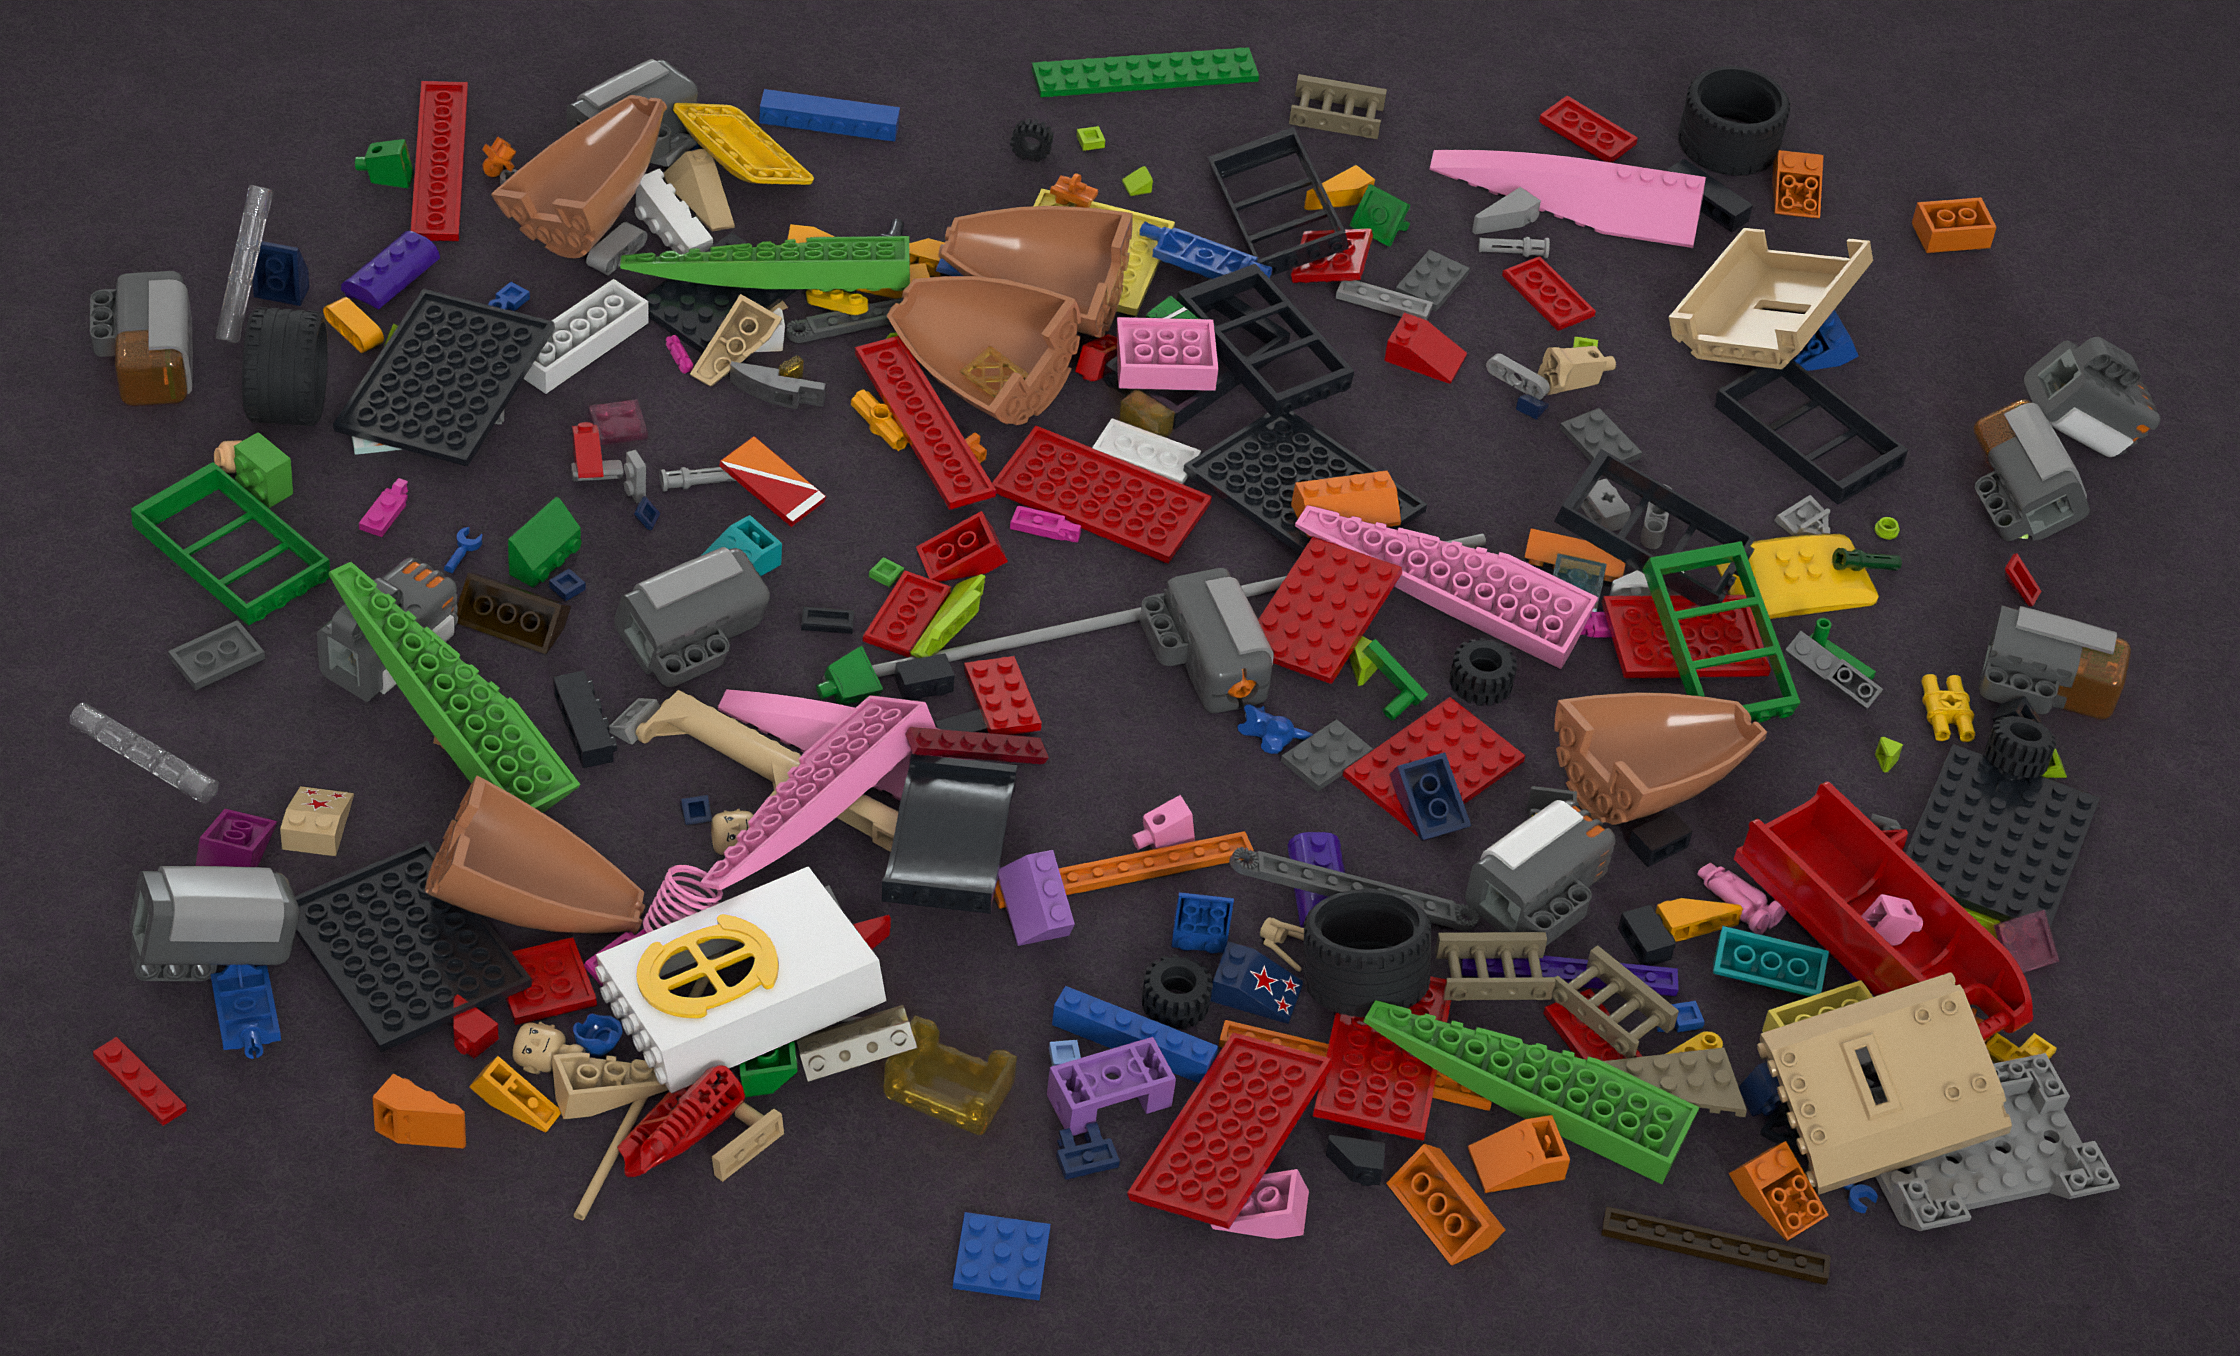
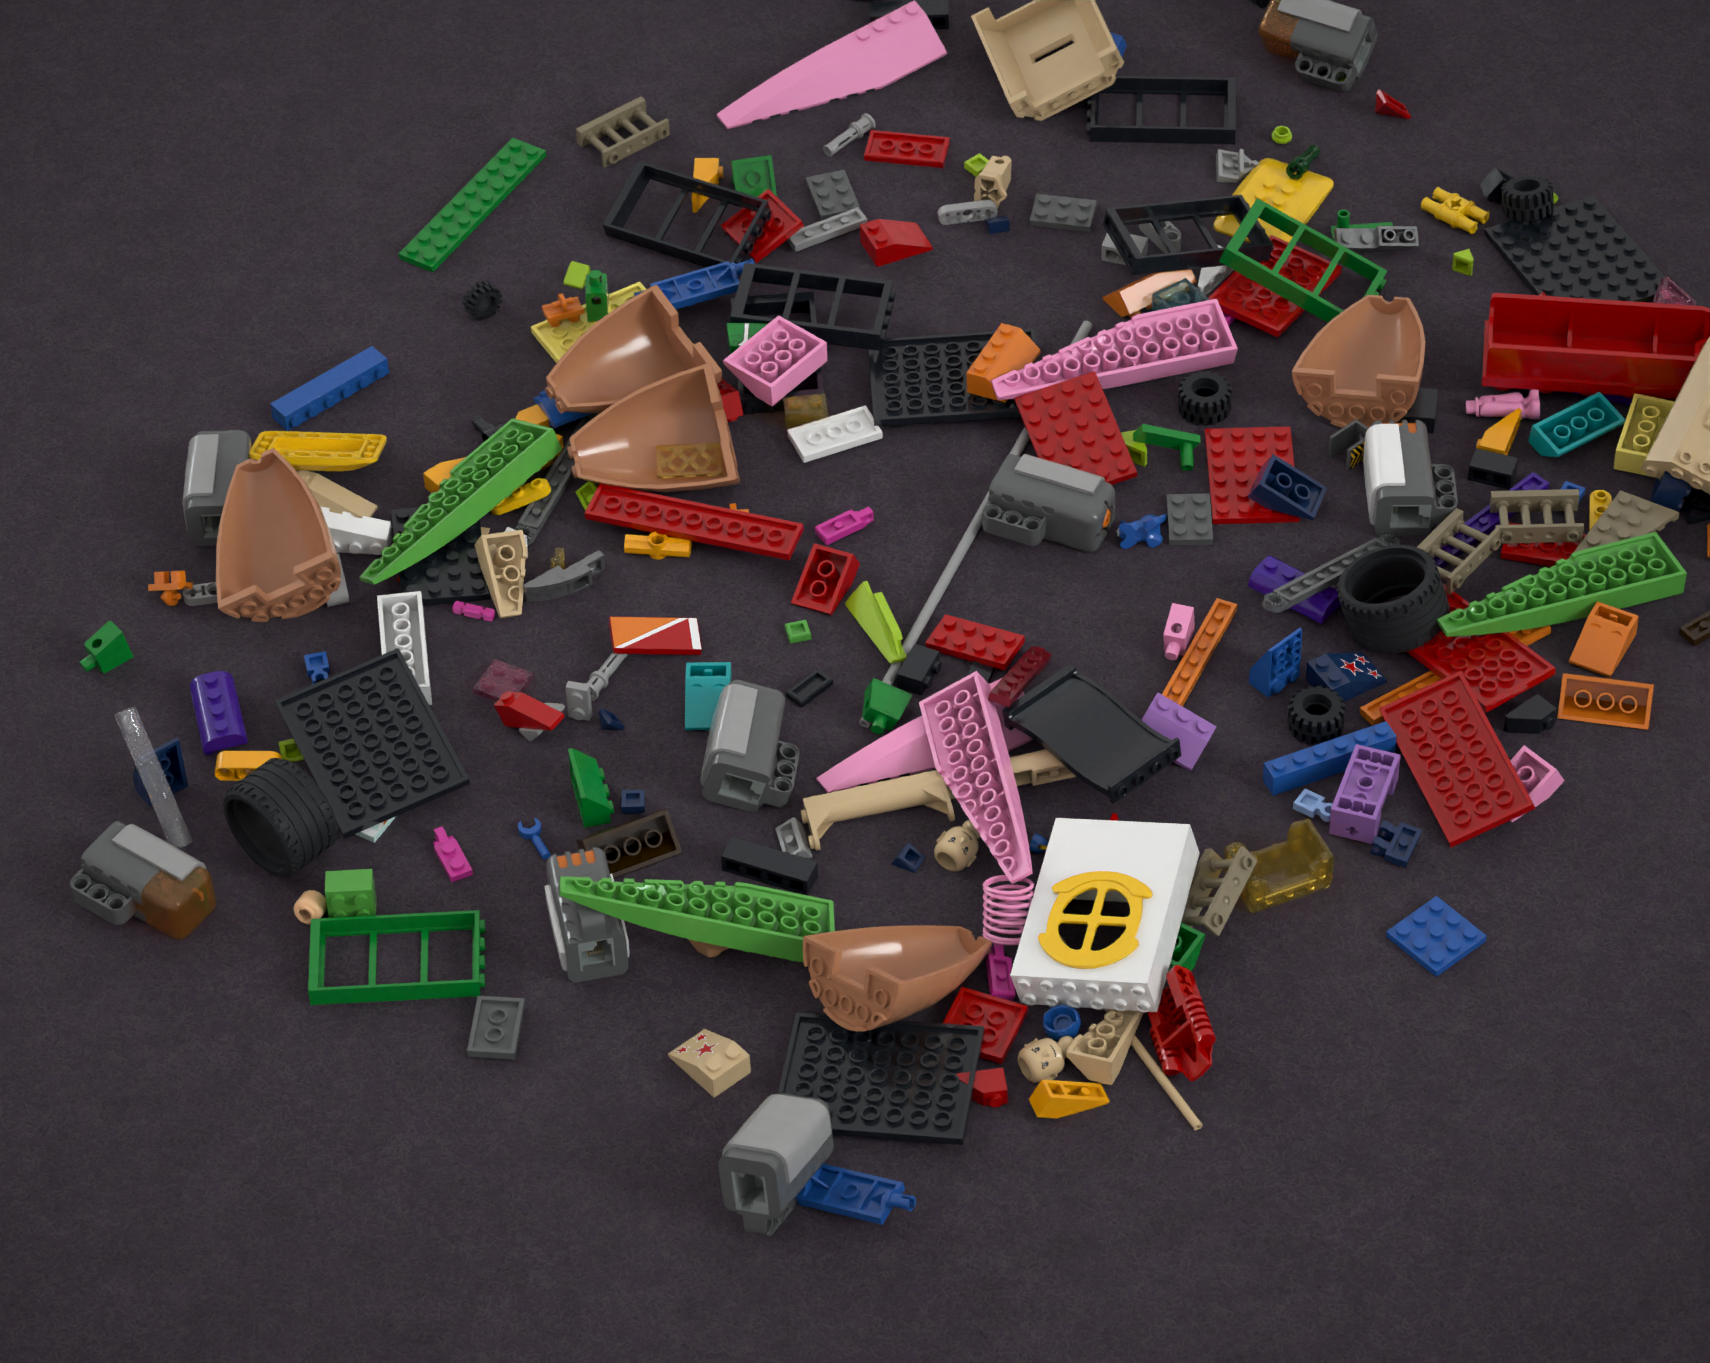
camera: 40 degrees left, 0 degrees up
(139, 1081) = (850, 1291): red plate -> none
(144, 753) = (550, 1119): clear piece -> none
(235, 840) = (690, 1117): magenta slope -> none
(417, 1116) = (1042, 1154): orange slope -> none
(439, 160) = (141, 626): red plate -> none
(751, 1142) = (1222, 987): tan piece -> none
(906, 613) = (847, 644): red tile -> none
(1090, 138) = (508, 271): lime plate -> none
(1102, 494) = (848, 478): red plate -> none
(1115, 195) = (596, 287): none -> green torso
(1277, 931) = (1312, 636): tan plant -> none
(1508, 213) = (818, 115): light grey slope -> none
(1588, 129) = (783, 29): red plate -> none
(1893, 918) = (1617, 339): bright pink torso -> none
(2054, 663) = (1477, 137): piece -> none

